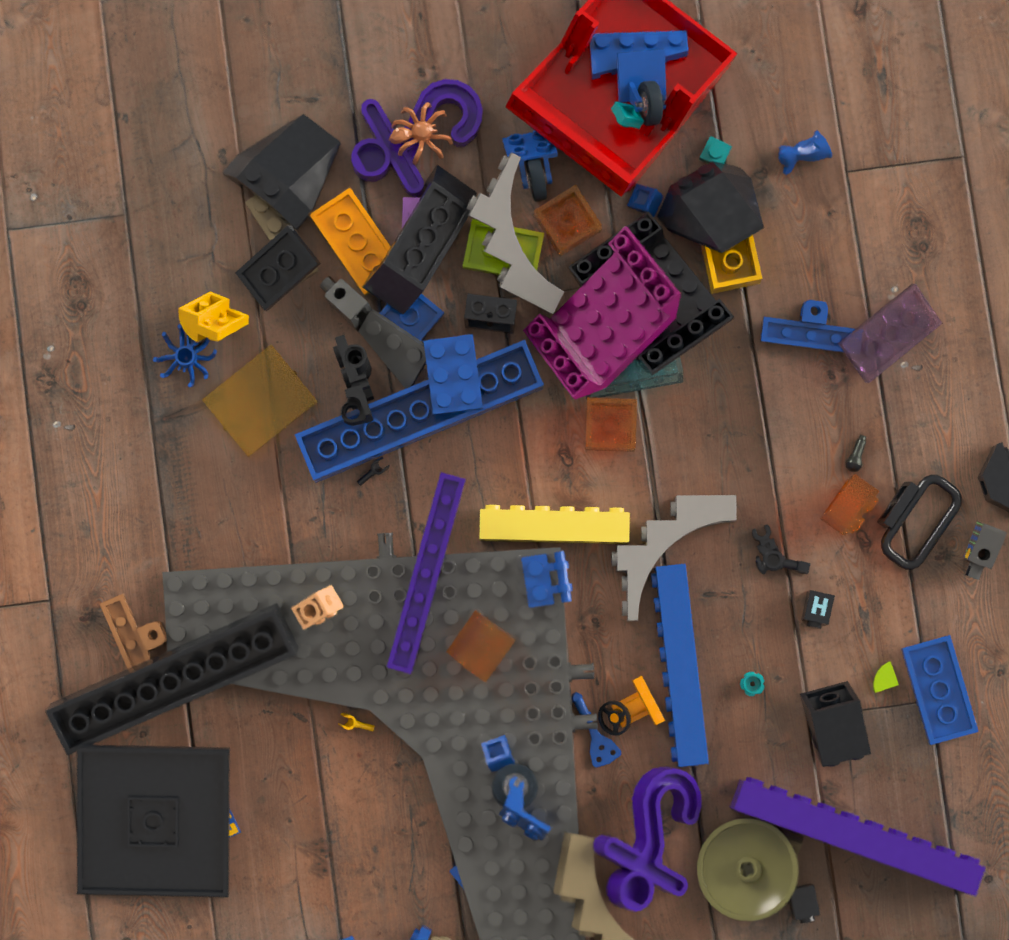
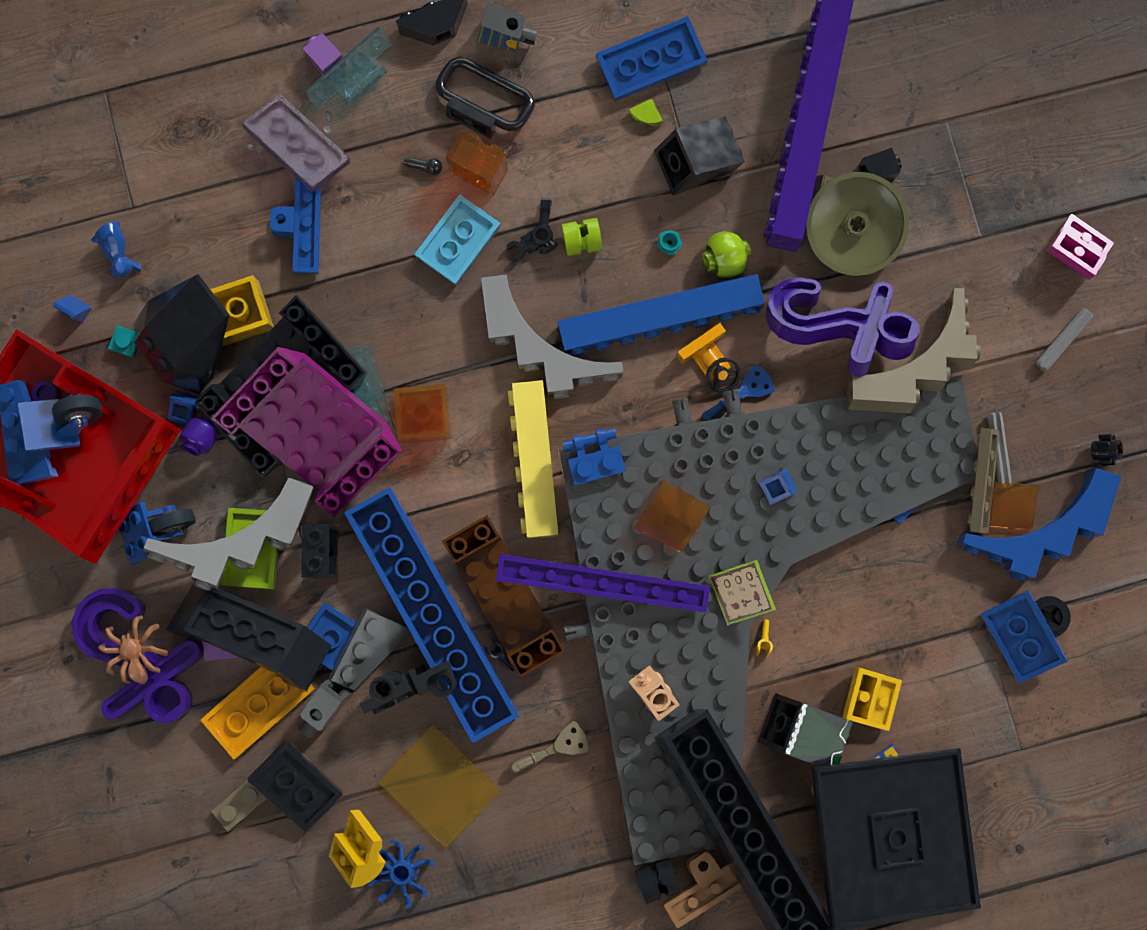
camera: 95 degrees left, 0 degrees up
(144, 591) = (657, 881): none -> black wheel
(263, 749) = (804, 731): none -> slope
(281, 516) = (558, 746): none -> dark tan piece
(285, 817) = (872, 698): none -> yellow brick
(287, 168) = (186, 790): black wedge -> none
(401, 704) = (742, 592): none -> piece
(413, 486) = (507, 606): none -> reddish brown slope
(453, 374) = (389, 582): blue plate -> none
(514, 790) = (814, 463): plate -> none
(567, 220) = (212, 484): clear orange brick -> none
(615, 212) = (198, 436): none -> dark purple head
(627, 115) = (92, 433): teal plate -> none
(674, 74) = (45, 391): none -> dark purple tile
(733, 737) = (726, 254): none -> lime plant
(753, 106) = (73, 308): none -> blue slope
(766, 588) = (582, 237): none -> lime wheel
(778, 478) = (457, 239): none -> medium azure plate
(817, 609) = (586, 185): black brick -> none
(955, 396) = (353, 73): none -> clear light blue bracket
(977, 369) = (322, 53): none -> medium lavender brick

